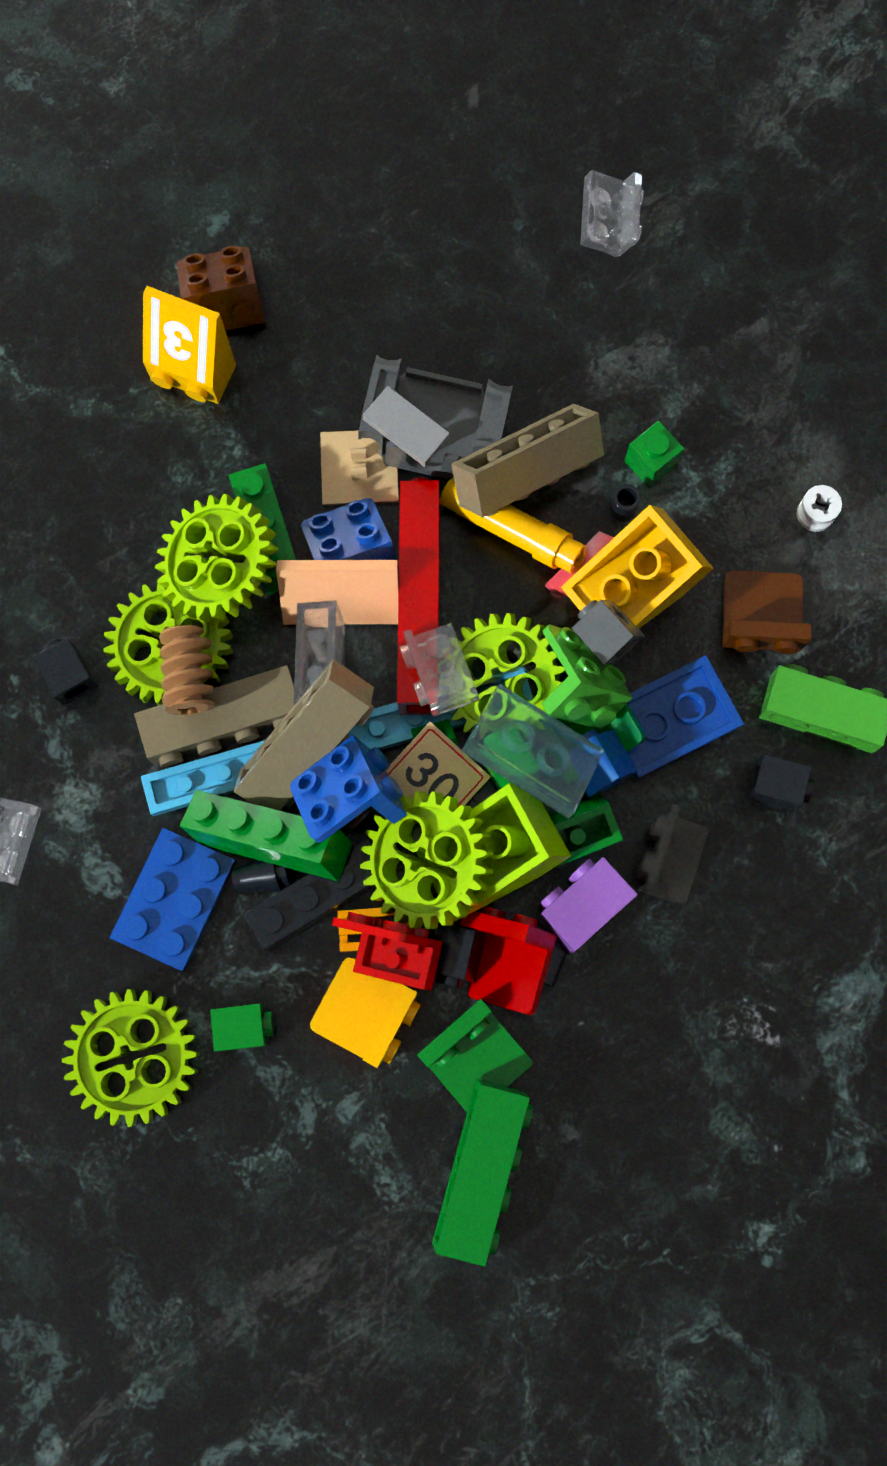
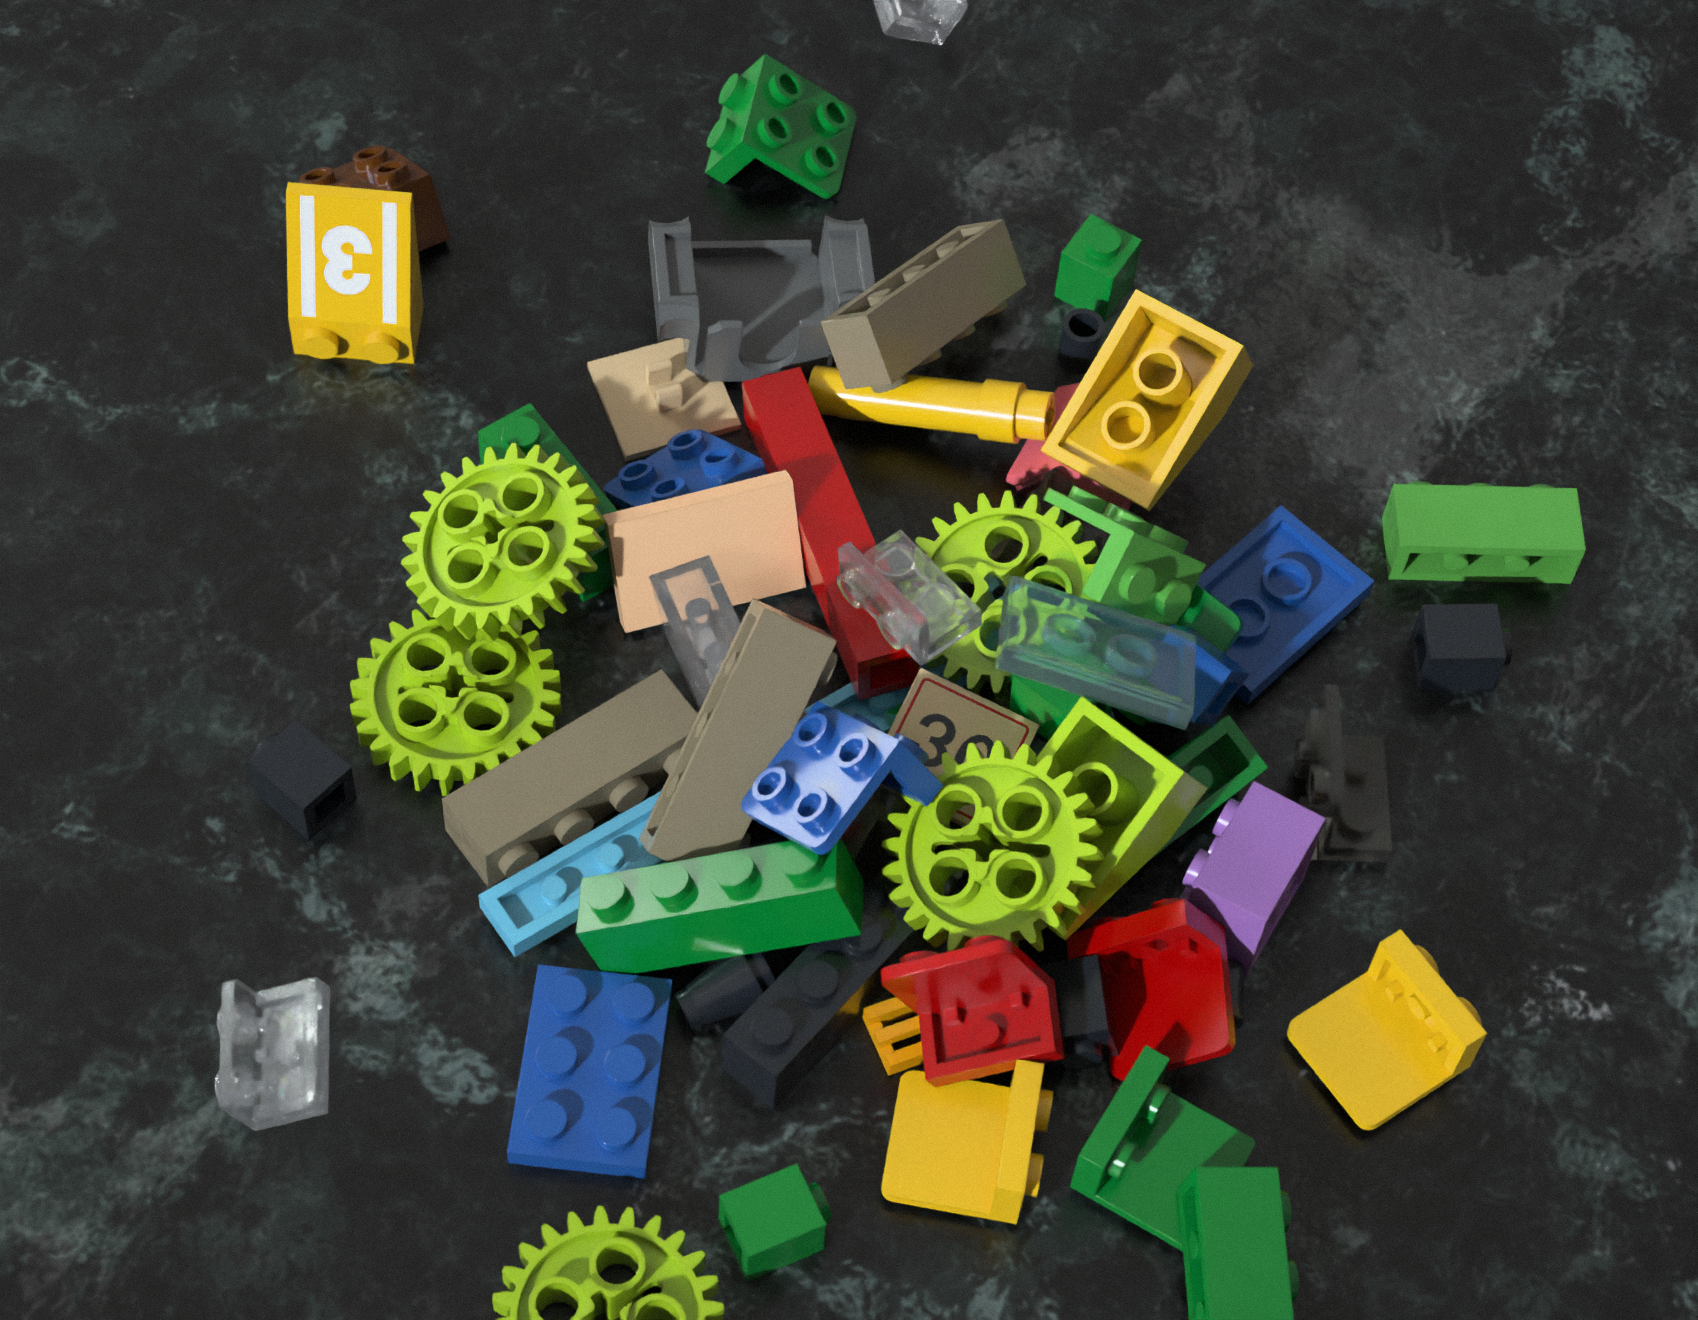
camera: 25 degrees left, 20 degrees down
(184, 671) = (513, 702): medium nougat piece -> none
(406, 426) = (732, 294): light grey tile -> none
(492, 299) = (783, 123): none -> green bracket
(607, 631) = (1137, 475): dark grey brick -> none
(633, 1023) = (1389, 1034): none -> yellow bracket
(764, 612) = (1341, 433): reddish brown bracket -> none
(812, 515) = (1365, 295): white wheel -> none

